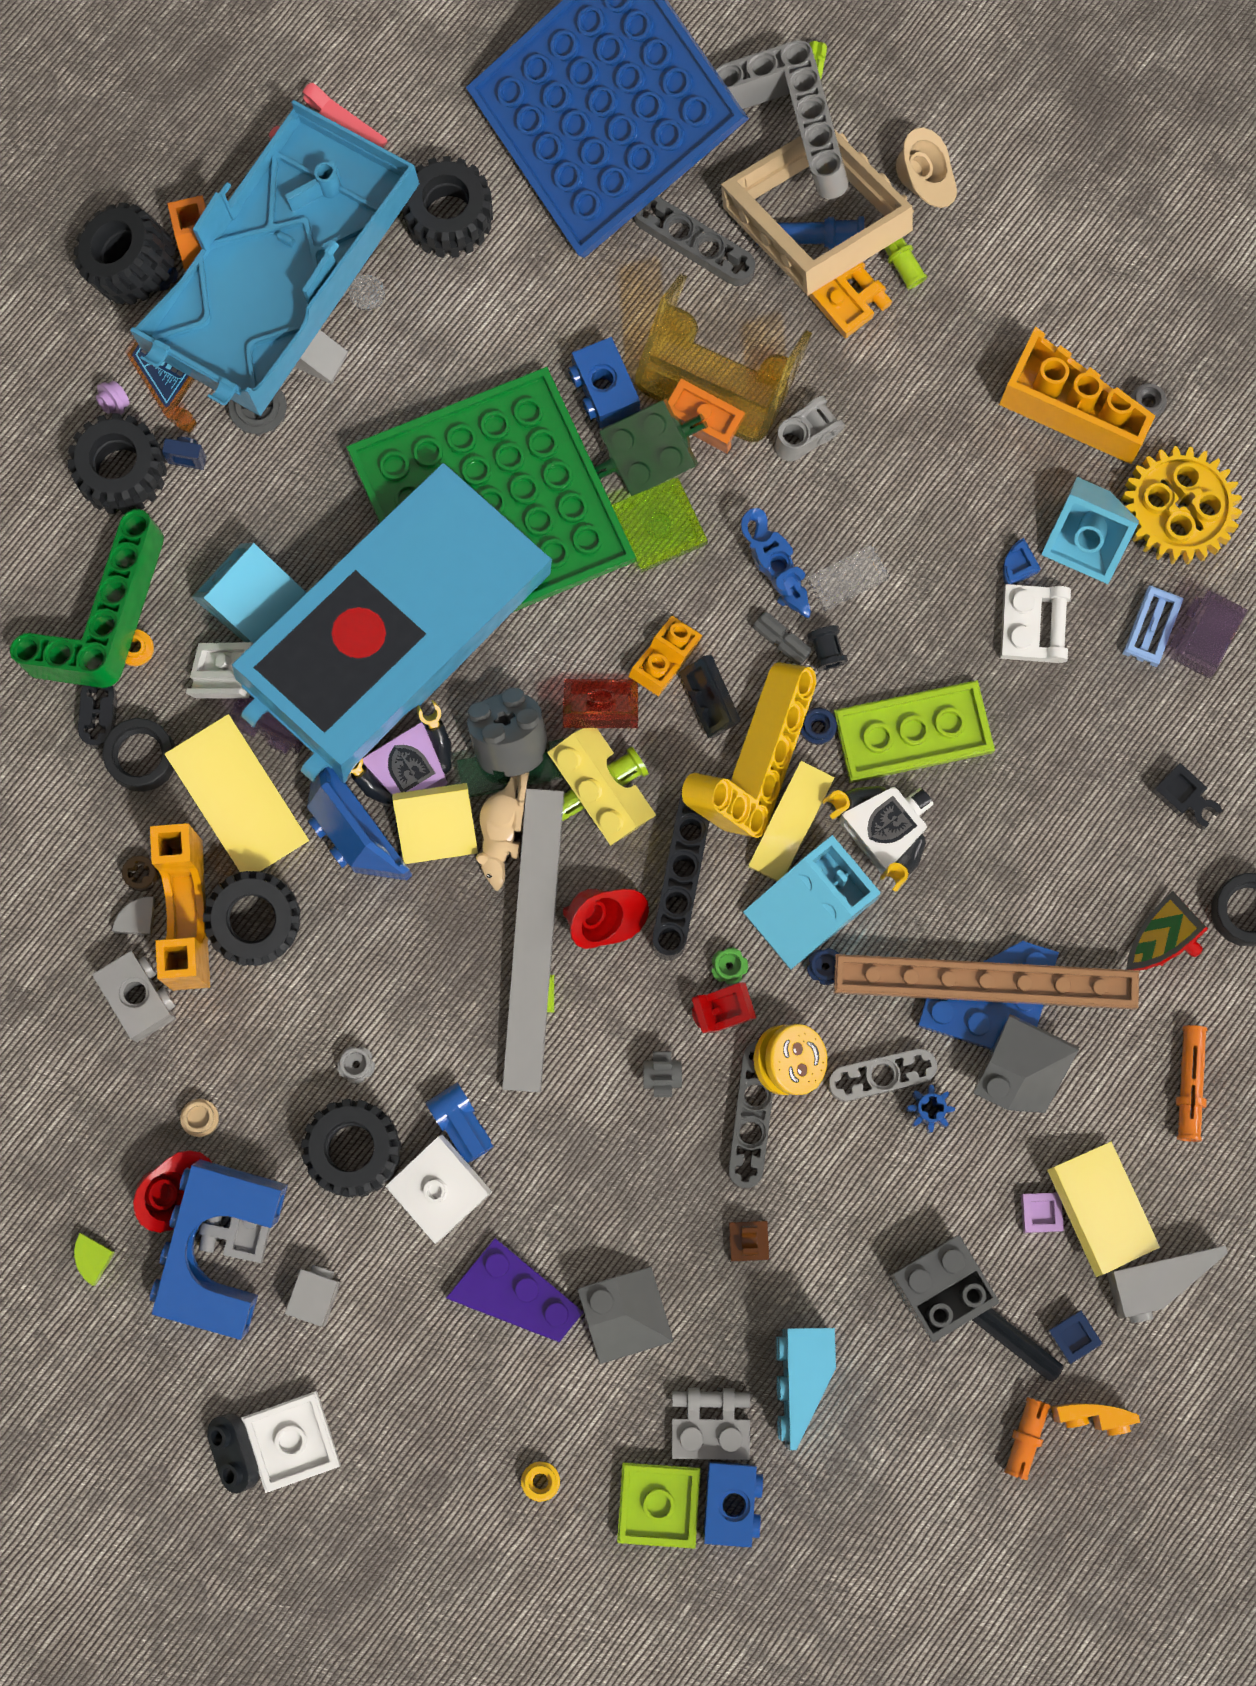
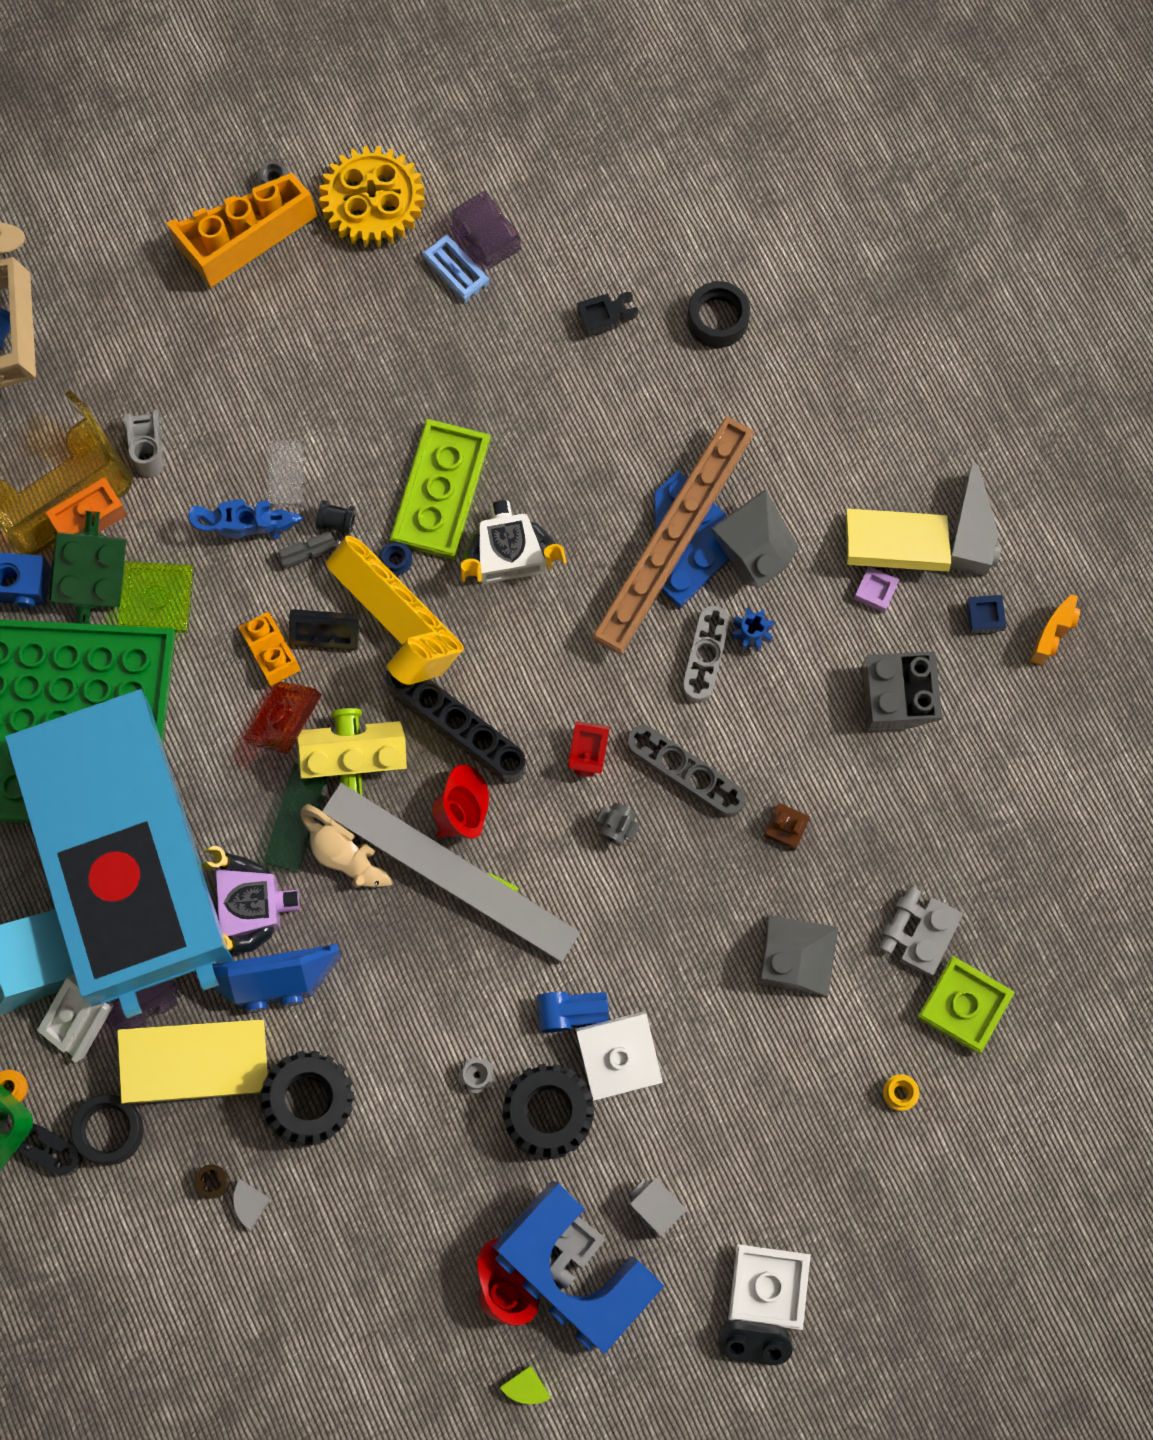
camera: 65 degrees left, 5 degrees down
(119, 979) = (295, 1241): light grey brick -> none
(180, 861) = (264, 1154): light orange arch -> none
(199, 1118) = (453, 1232): tan plate -> none
(435, 823) = (308, 903): light yellow tile -> none
(508, 733) = (266, 803): dark grey brick -> none
(515, 1293) = (736, 1036): dark purple wing -> none
(718, 1525) = (971, 945): blue brick -> none
(733, 956) = (554, 719): bright green plate -> none
(790, 1059) = (658, 716): yellow head -> none
(791, 821) = (463, 617): light yellow slope -> none
(807, 1370) = (921, 832): medium azure slope -> none
(812, 902) = (539, 634): medium azure slope -> none
(815, 968) = (594, 662): dark blue plate -> none
(845, 306) = (60, 359): light orange plate -> none
(905, 263) = (50, 296): lime axle -> none
(1019, 563) = (349, 340): blue tile -> none
(1019, 1344) = (973, 657): black axle -> none
(1022, 623) = (400, 362): white plate -> none
(1027, 1438) = (1047, 690): orange pin -> none
(1091, 531) = (355, 271): medium azure slope -> none
(1166, 935) = (707, 382): shield -> none
(1190, 1128) = (831, 425): orange pin -> none

